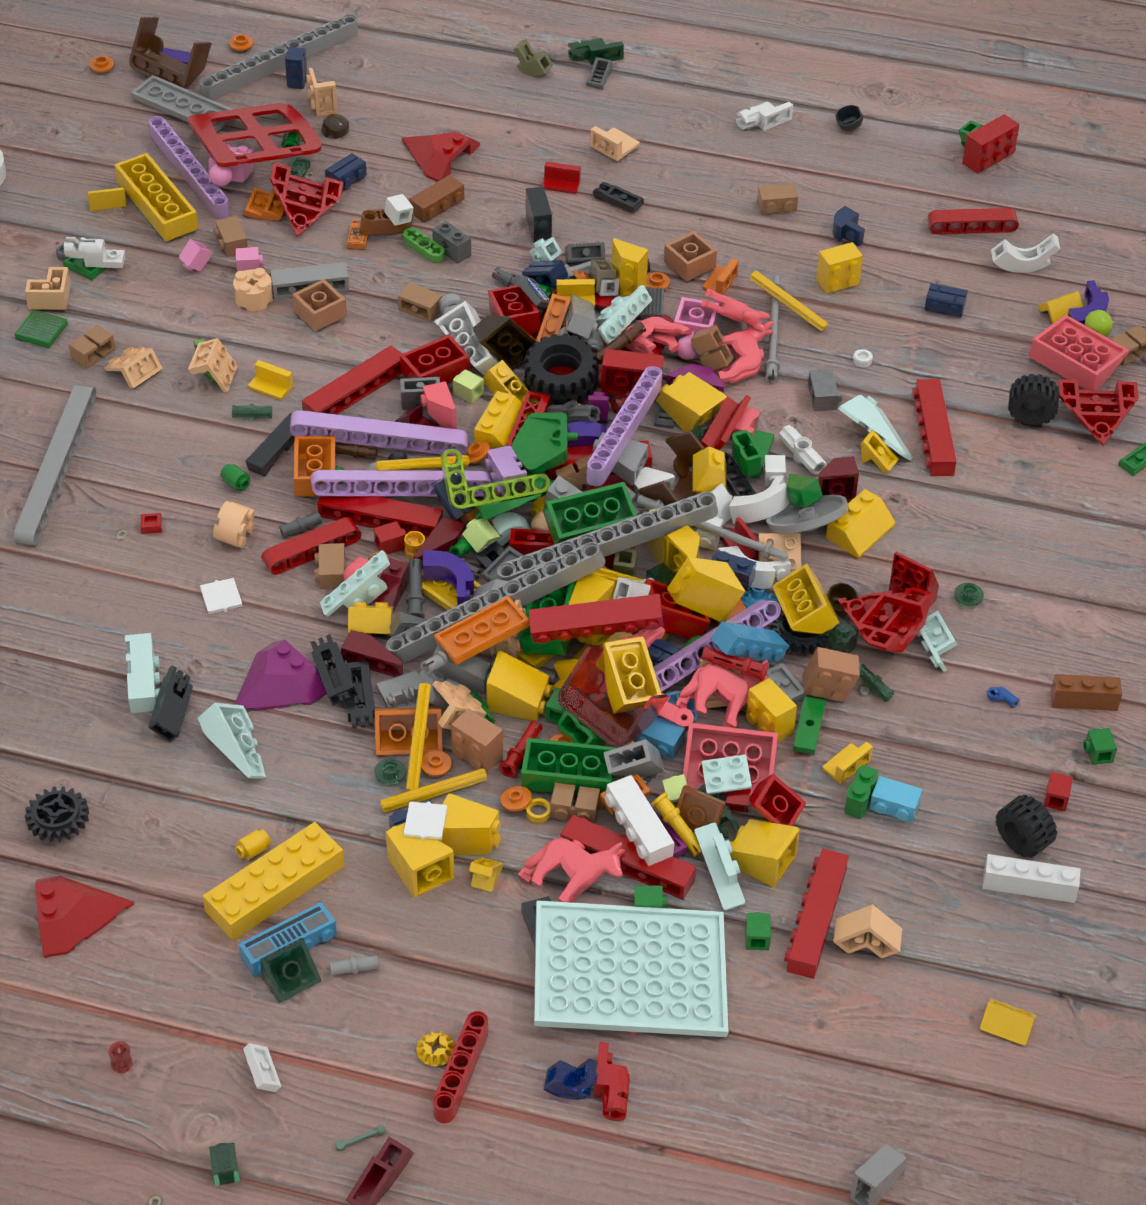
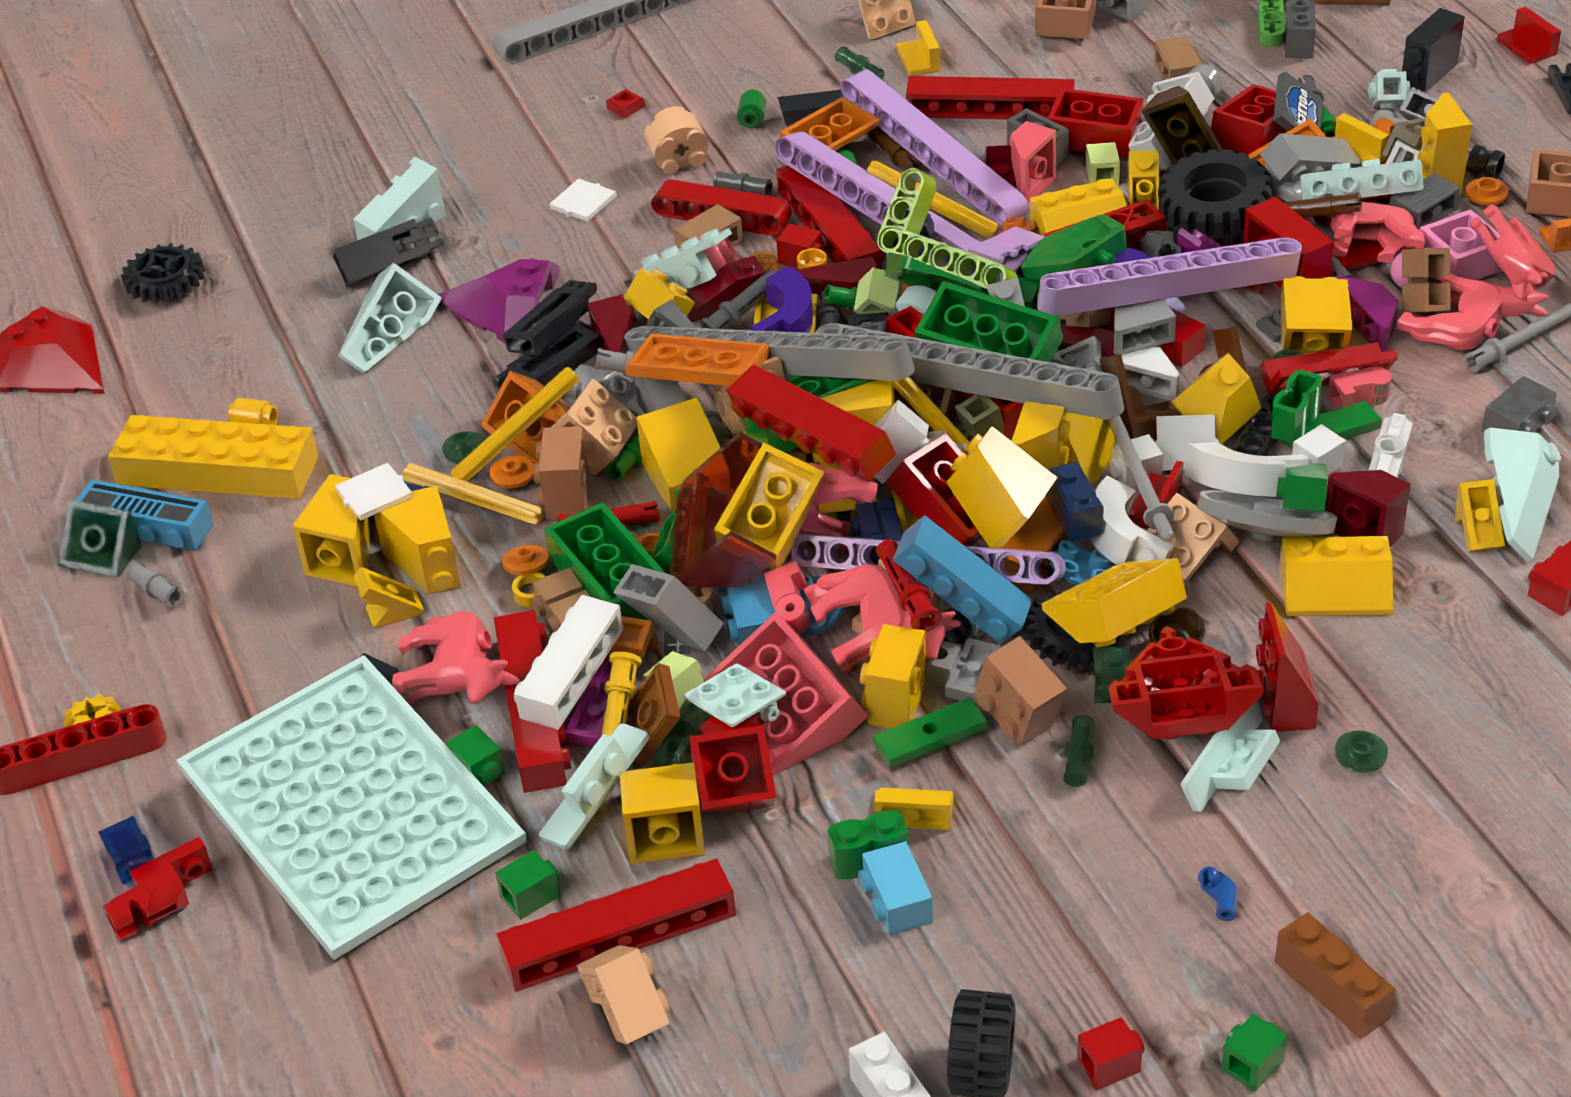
camera: 55 degrees right, 5 degrees down
(546, 272) = (1354, 103): dark blue brick -> none

